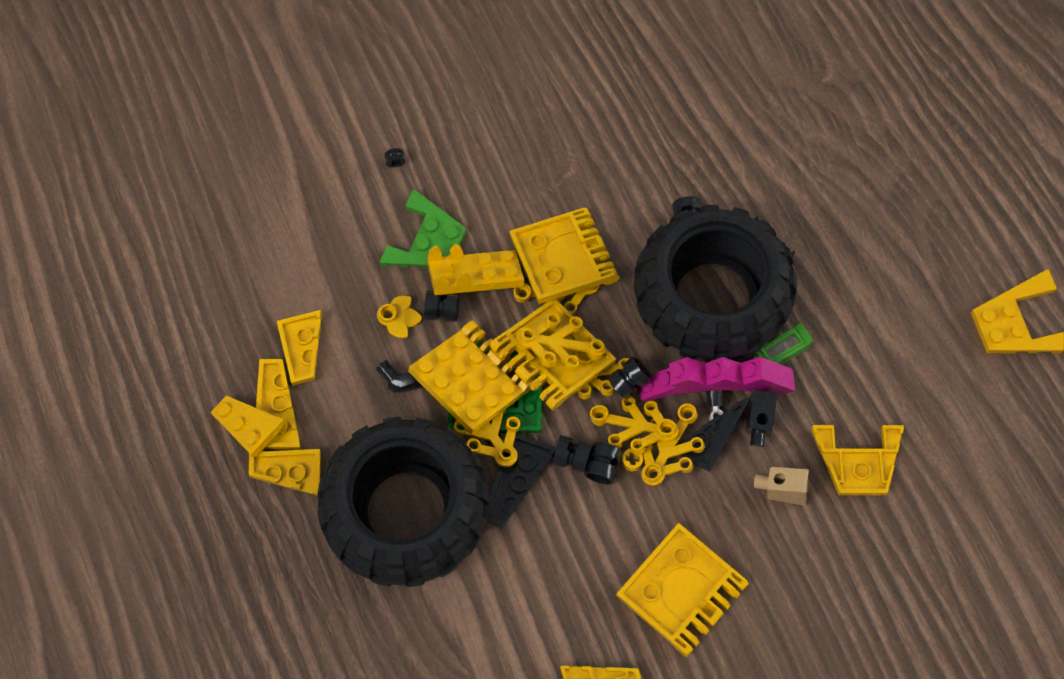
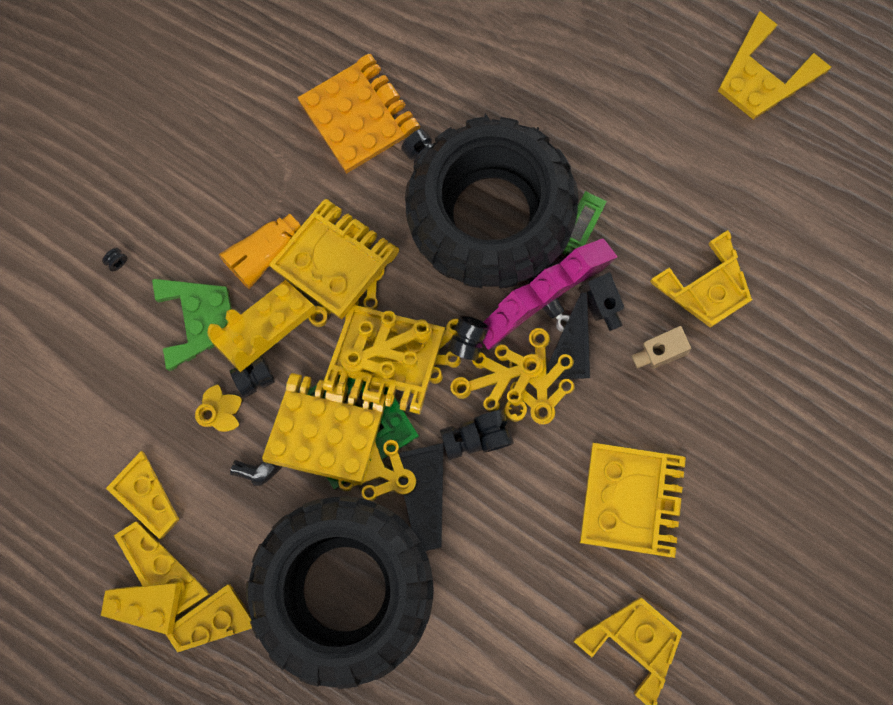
camera: 30 degrees left, 10 degrees up
(501, 216) = (252, 255): none -> light orange piece
(655, 159) = (355, 116): none -> light orange hinge

